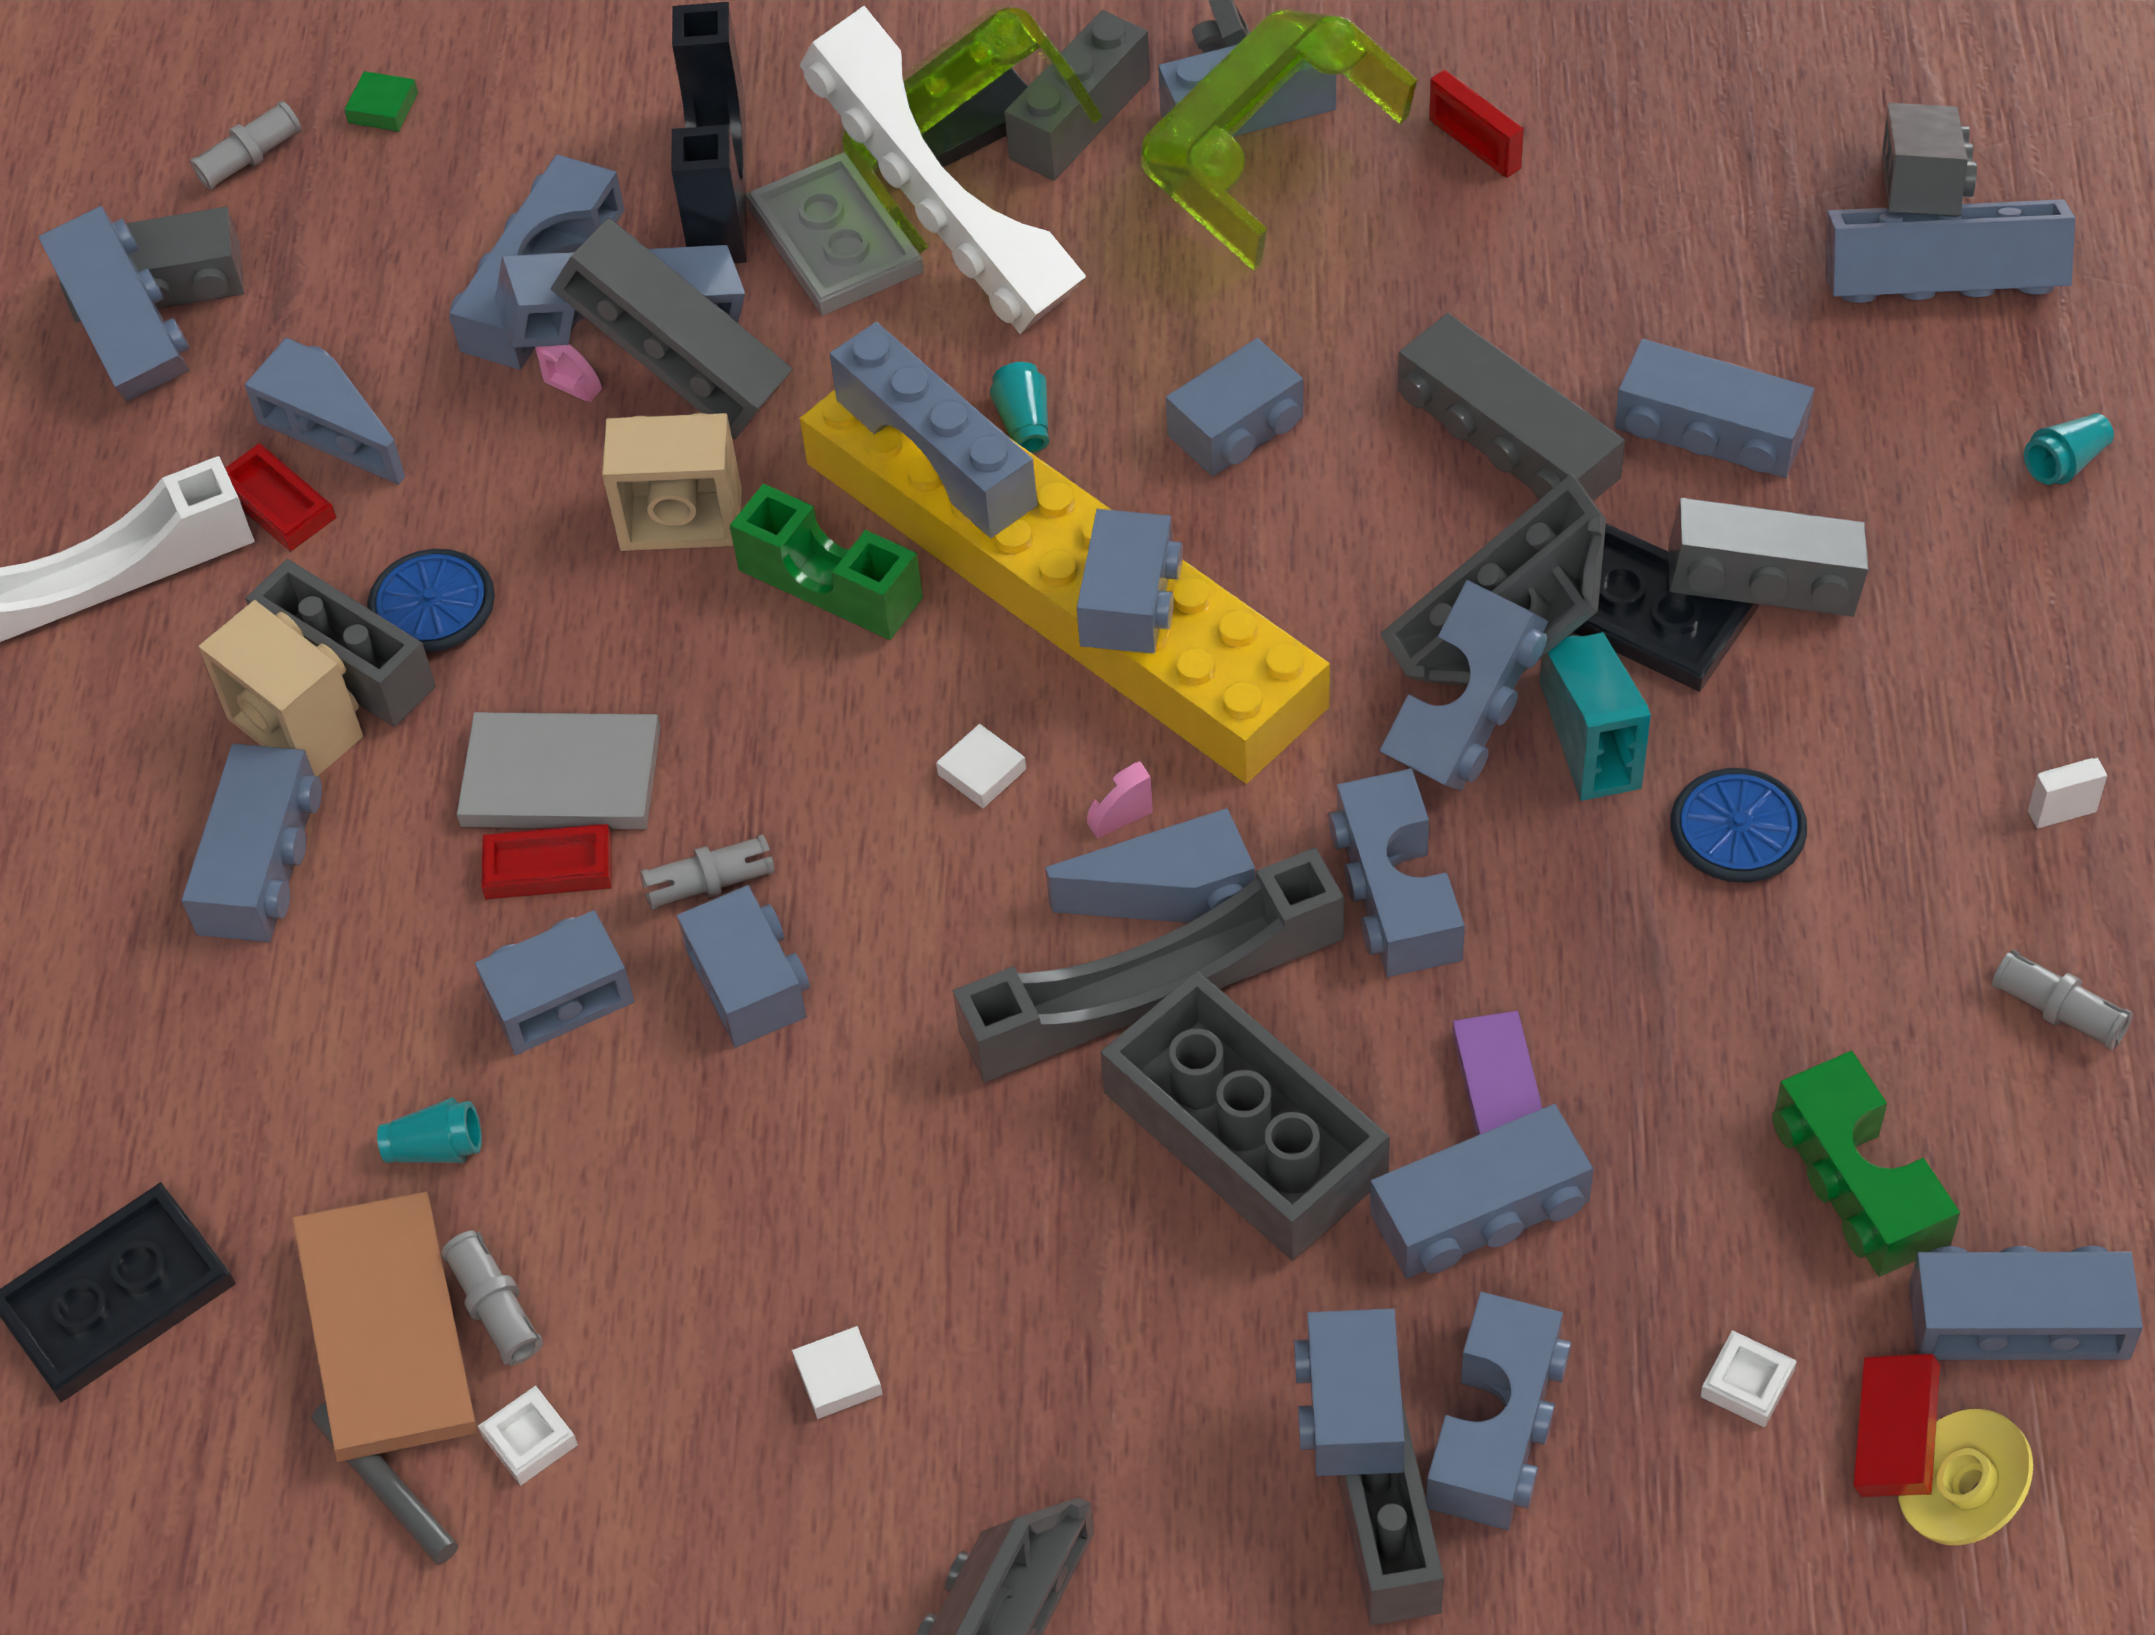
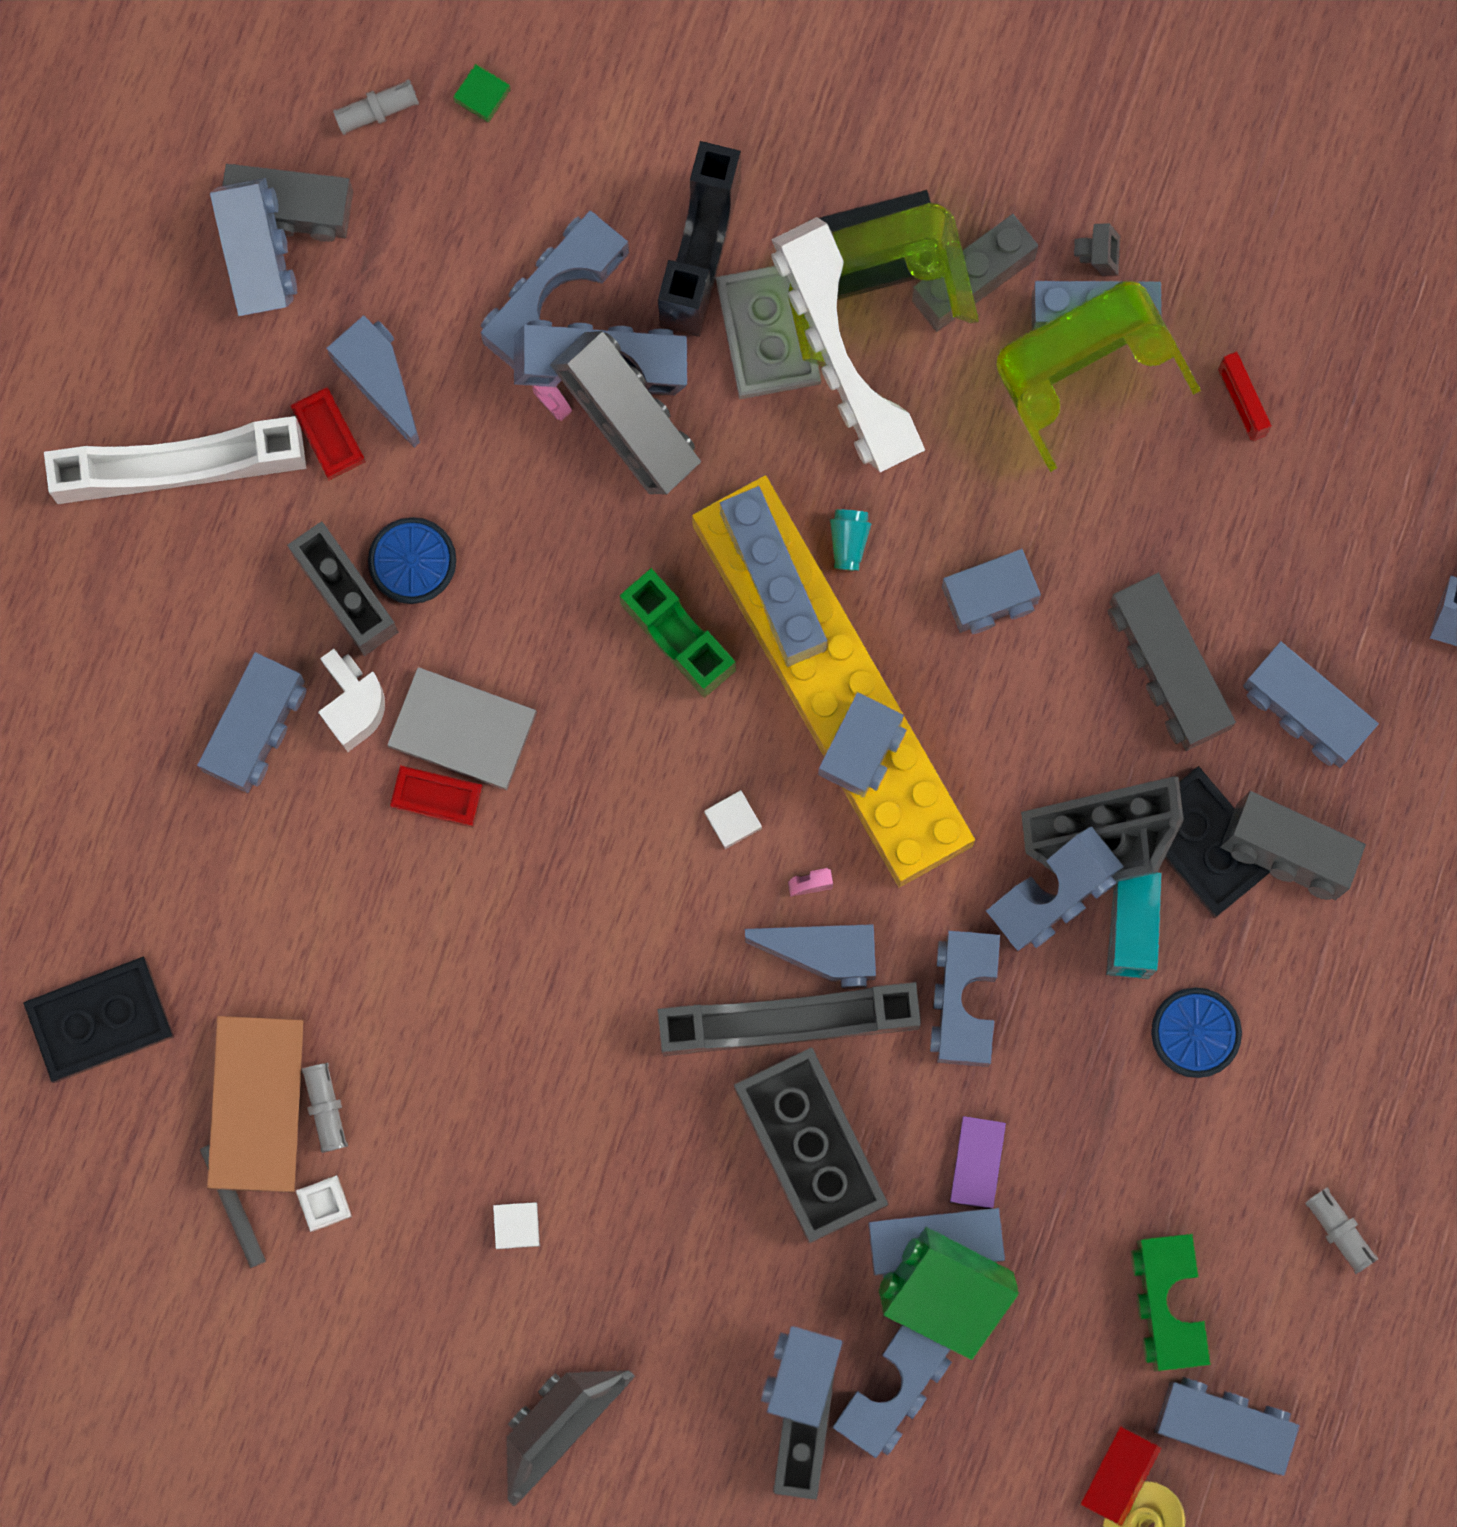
camera: 15 degrees right, 25 degrees up
(282, 686) = (292, 614): tan brick -> none
(396, 778) = (359, 708): none -> white brick
(432, 1135) = (316, 981): teal cone -> none
(554, 981) = (417, 895): sand blue brick -> none
(671, 481) = (594, 533): tan brick -> none
(707, 872) = (535, 844): light grey pin -> none
(743, 965) = (537, 925): sand blue brick -> none
(1526, 1230) = (948, 1292): none -> green brick
(1748, 1378) = (1048, 1413): white tile -> none
(2067, 792) = (1410, 1086): white tile -> none

